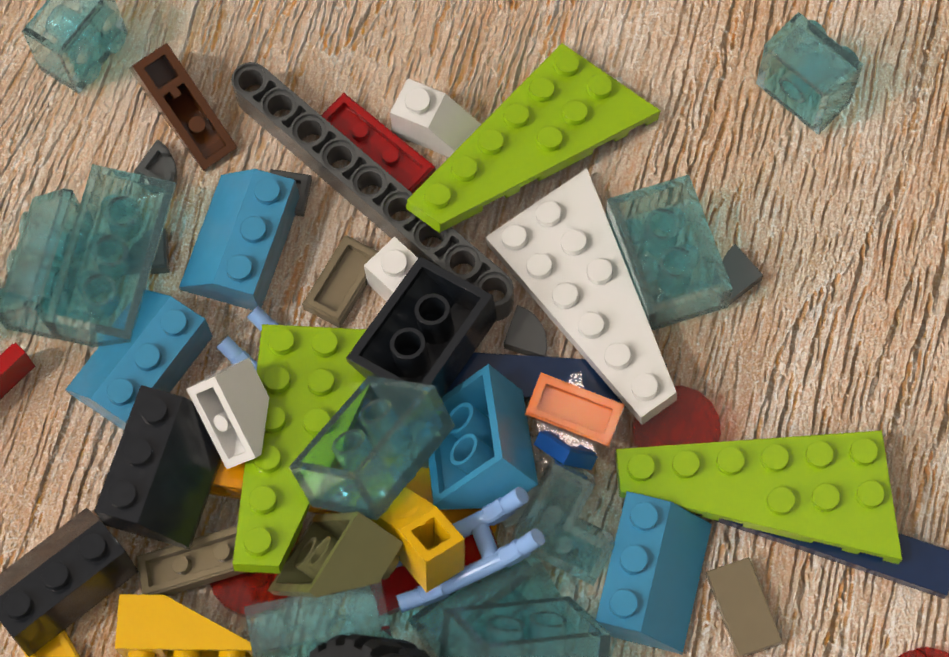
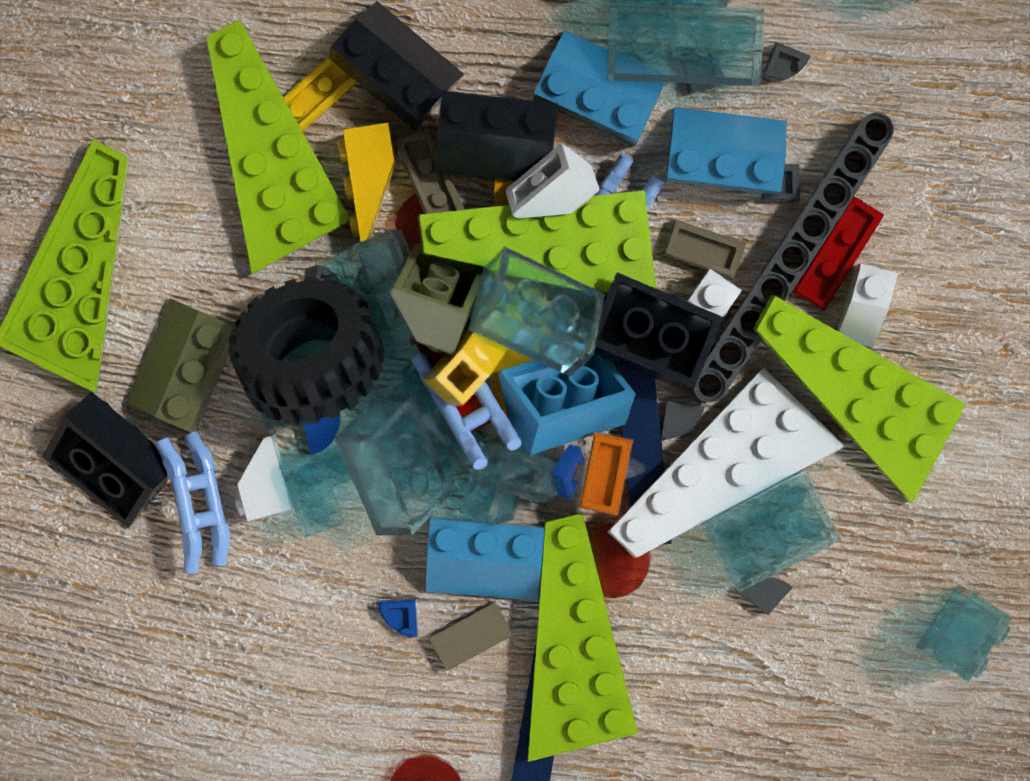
camera: 80 degrees right, 20 degrees up
(183, 106) = (845, 71): reddish brown slope -> none

